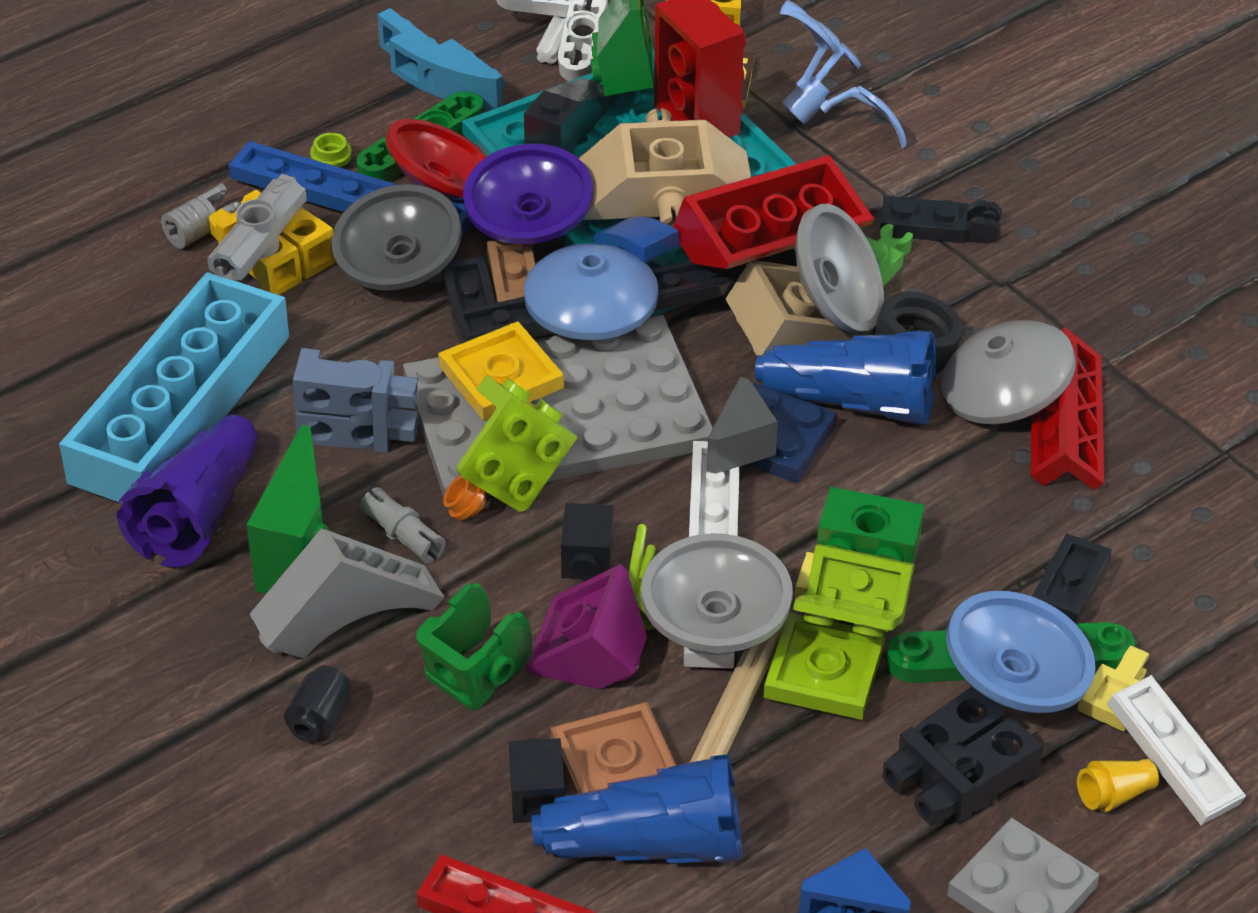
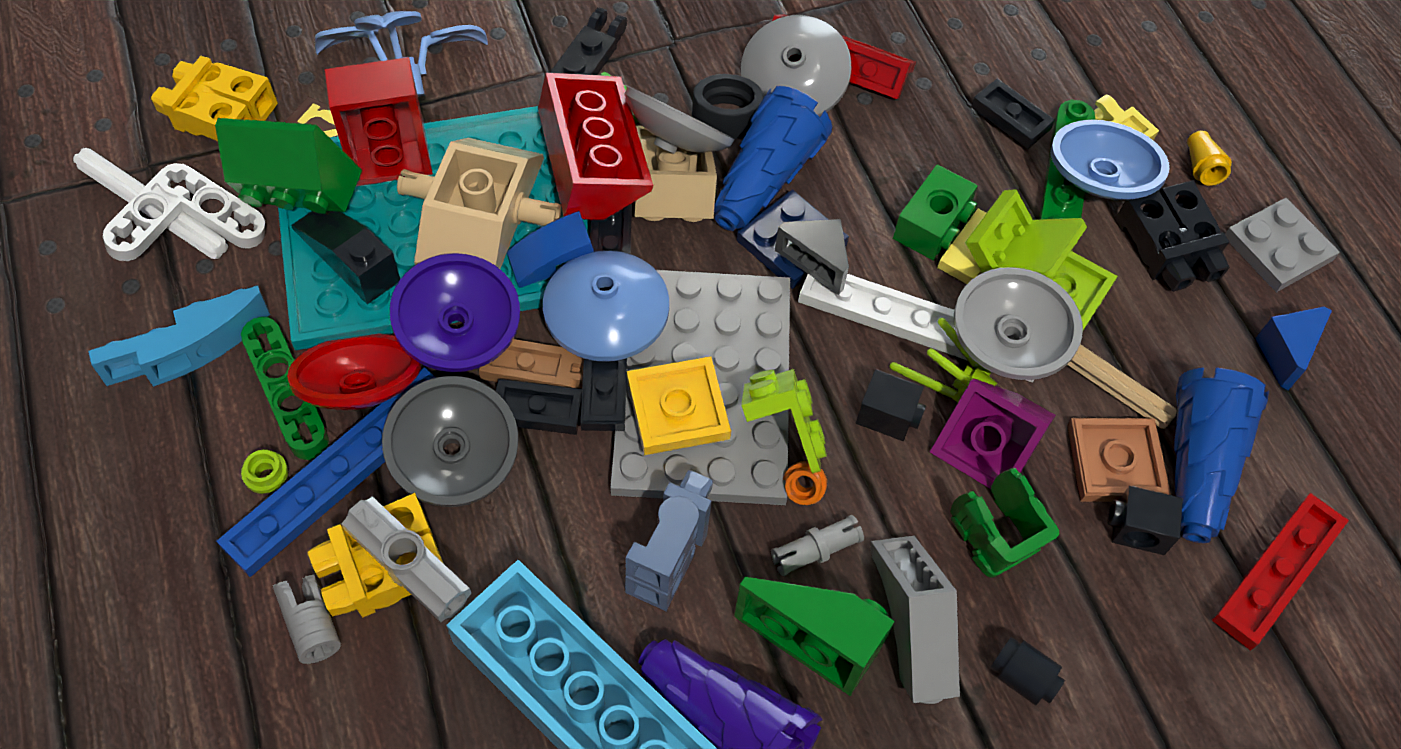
camera: 75 degrees left, 15 degrees up
(1176, 750) = (1187, 115): white tile -> none

